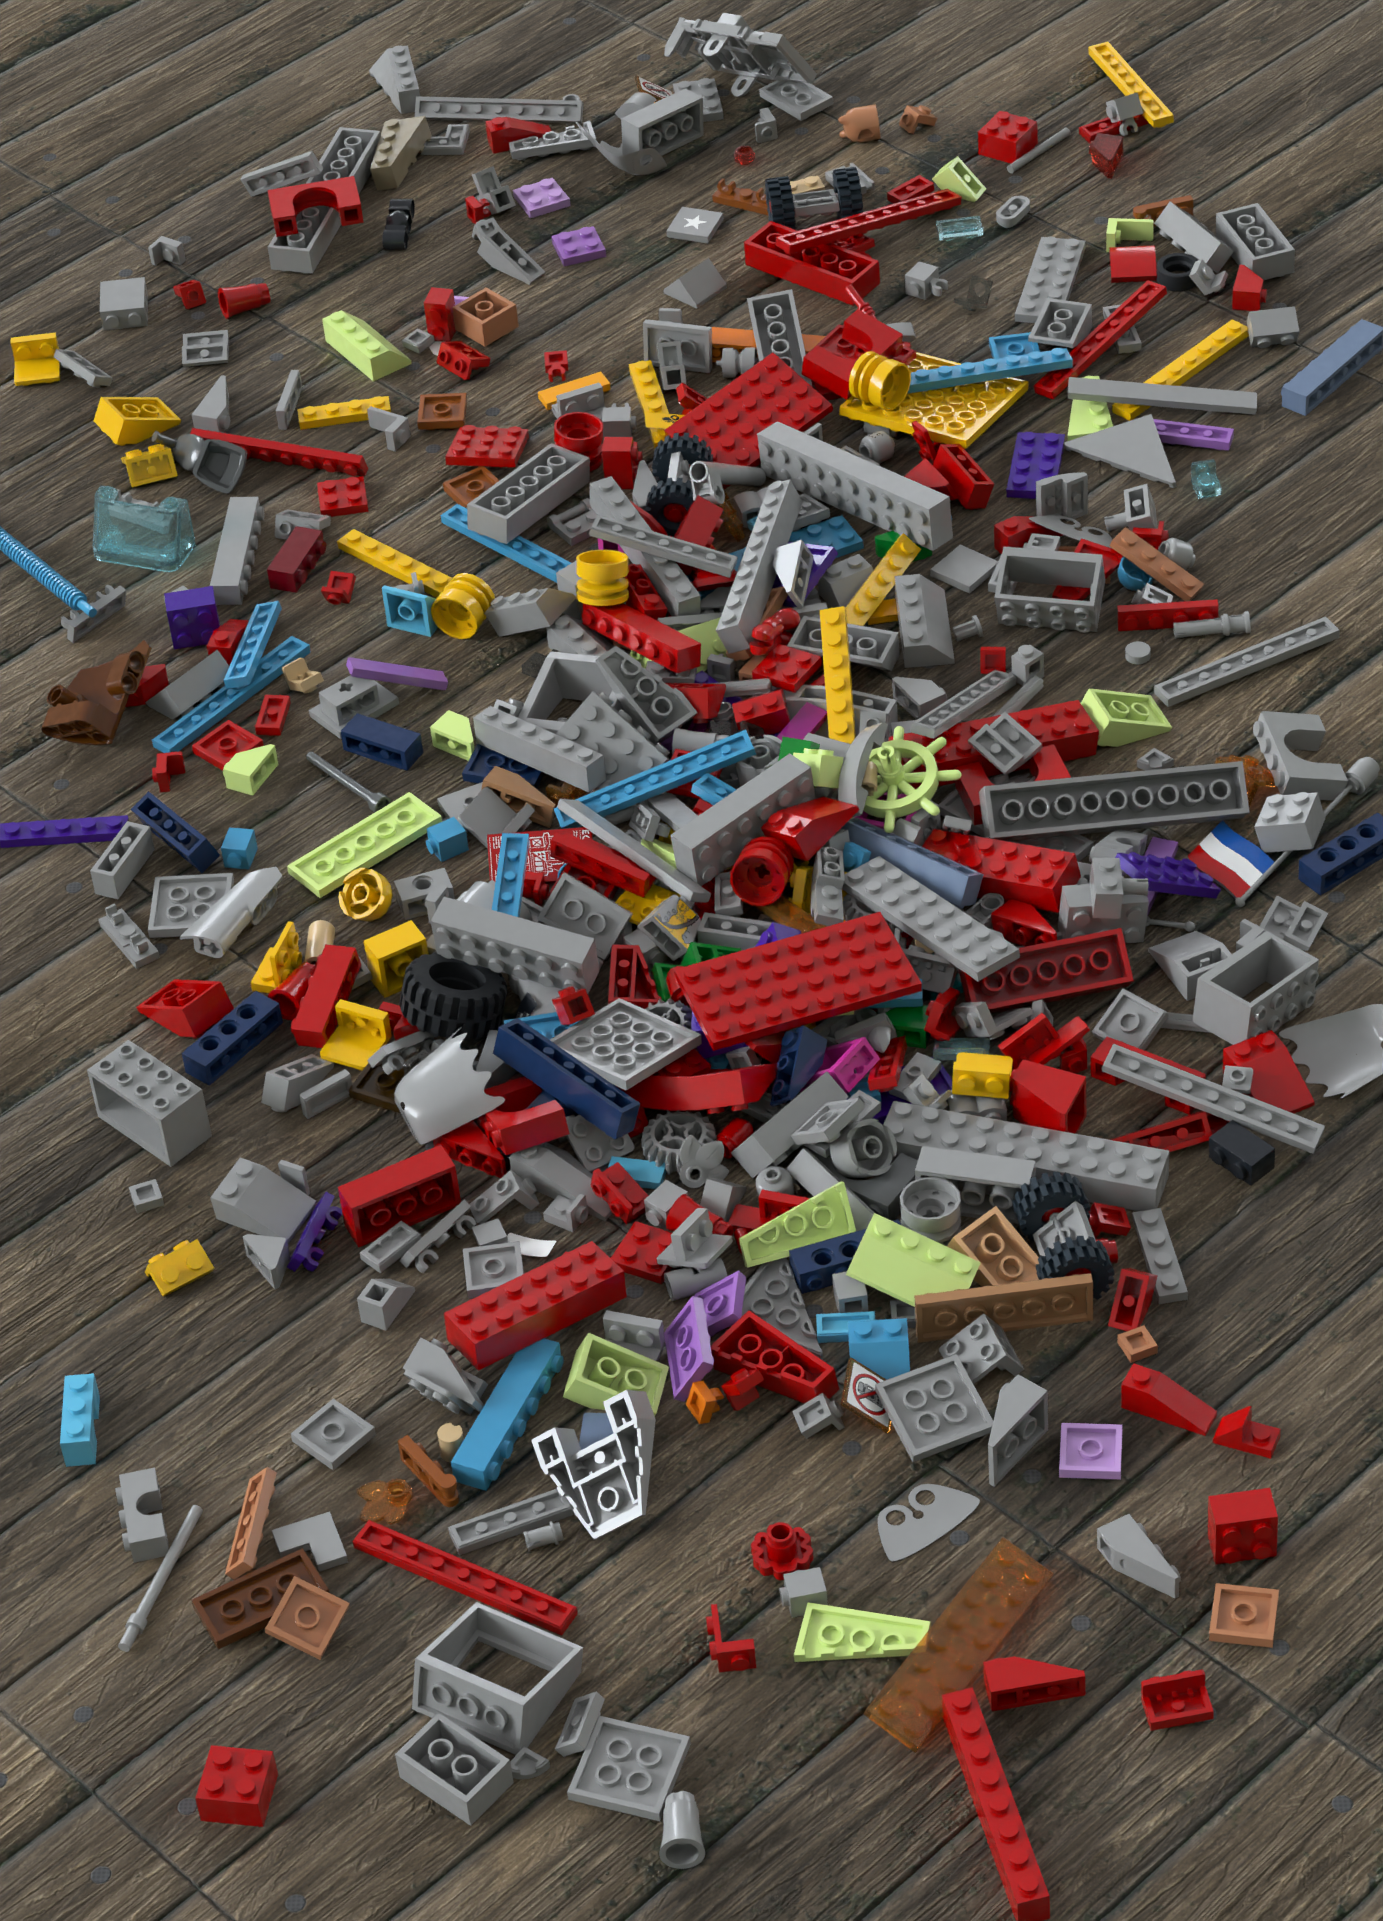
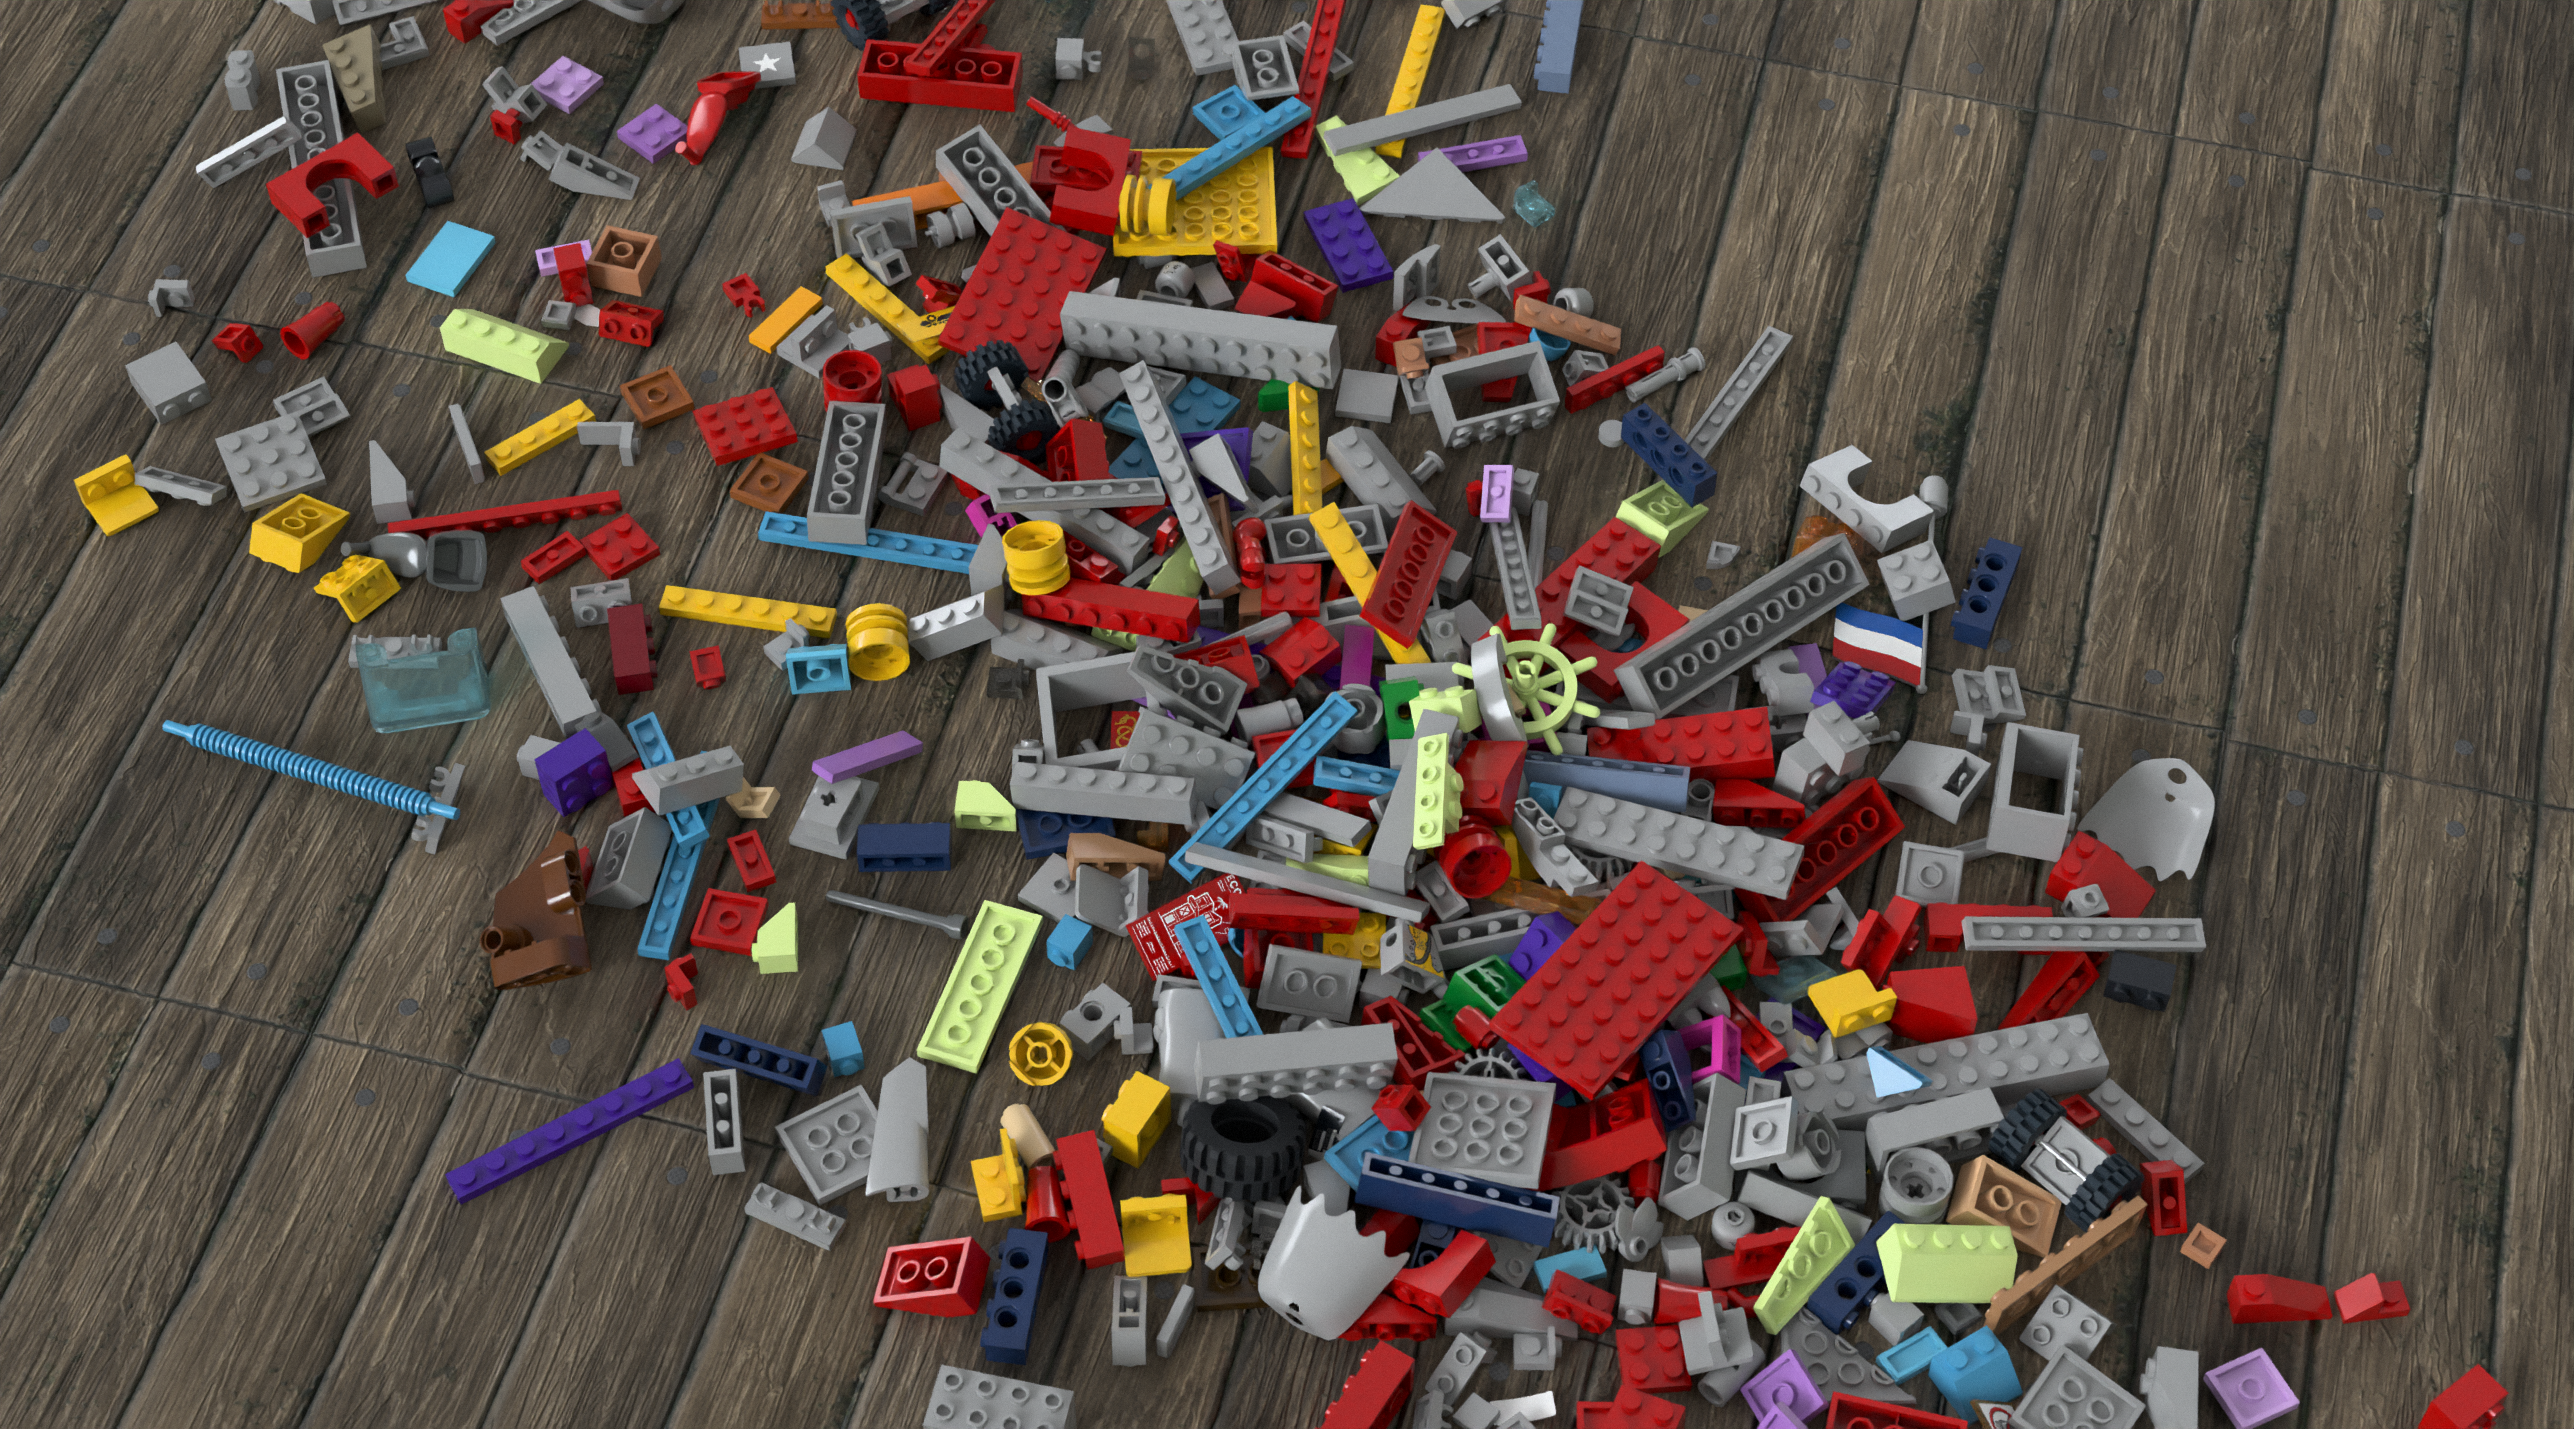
camera: 35 degrees left, 10 degrees up
(152, 370) = (270, 461): none -> light grey plate
(230, 605) = (610, 737): none -> dark grey slope
(259, 641) = (691, 780): none -> light grey slope
(291, 488) = (553, 557): none -> red plate
(318, 131) = (242, 80): none -> light grey brick
(373, 284) = (450, 259): none -> medium azure tile
(636, 228) = (719, 94): none -> red piece
(716, 601) = (1166, 536): none -> red plate
(753, 810) = (1436, 793): none -> yellowish green bracket
(873, 678) = (1408, 574): none -> red plate
(905, 458) = (1212, 287): none -> light grey tile
(970, 1126) = (1892, 1074): none -> slope
(997, 655) = (1497, 493): none -> lavender plate
(1008, 539) = (1410, 358): none -> nougat bracket
(1158, 673) = (1668, 455): none -> dark blue brick

